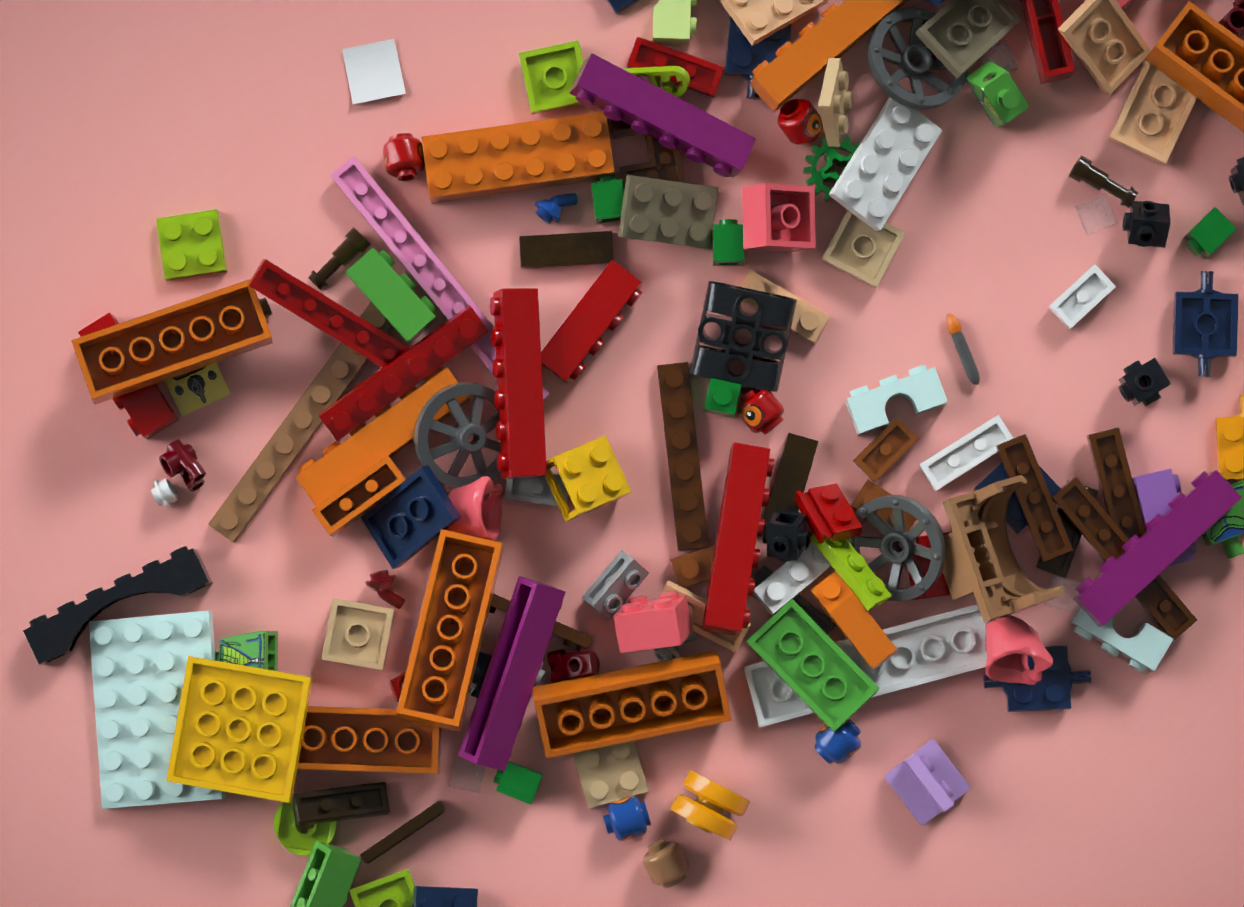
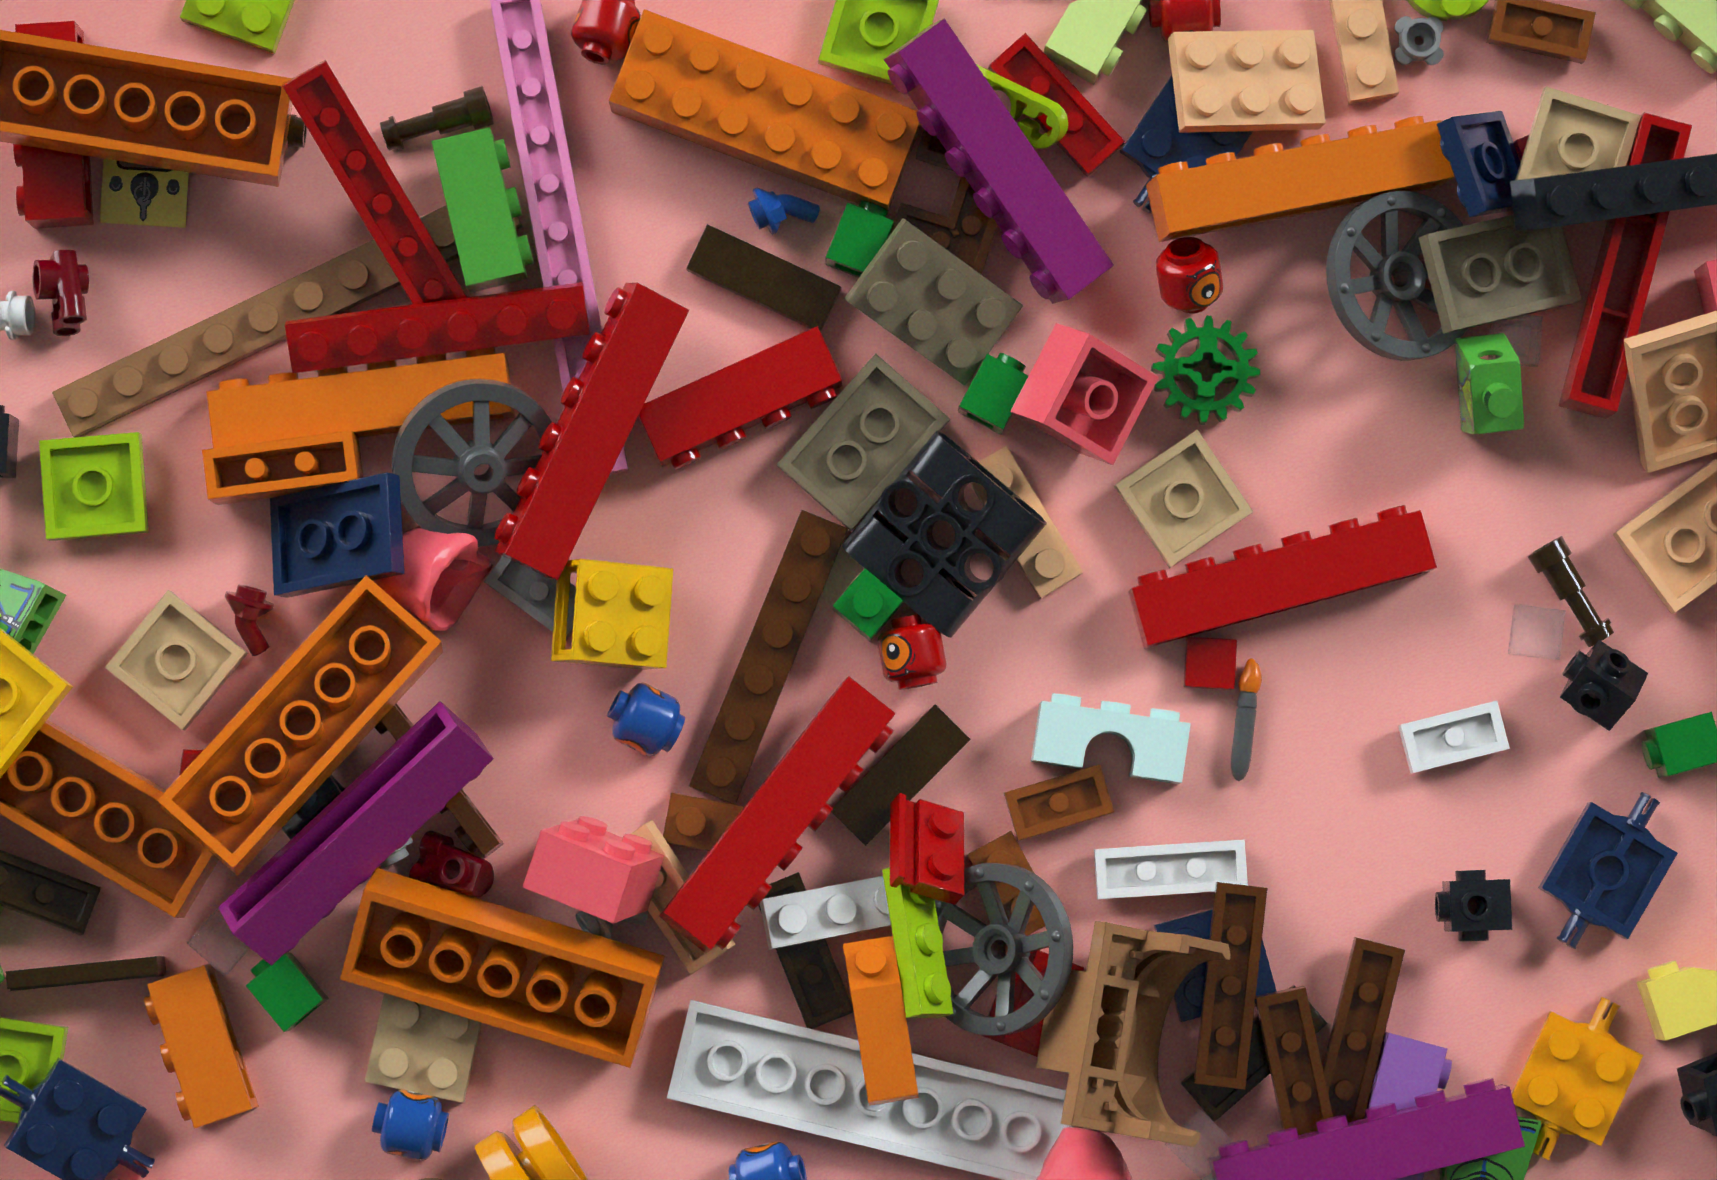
camera: 20 degrees right, 0 degrees up
(259, 563) = (93, 486): none -> lime plate
(488, 838) = (200, 1046): none -> orange brick
(615, 585) = (573, 787): light grey bracket -> none
(635, 526) = (646, 719): none -> blue head
(670, 310) = (862, 442): none -> dark tan plate
(786, 535) = (850, 848): black brick -> none
(812, 665) = (787, 1052): bright green plate -> none
(835, 102) = (1252, 273): tan plate -> none
(885, 163) = (1277, 398): white plate -> none
(926, 328) = (1210, 663): none -> red tile
(941, 260) = (1281, 578): none -> red brick

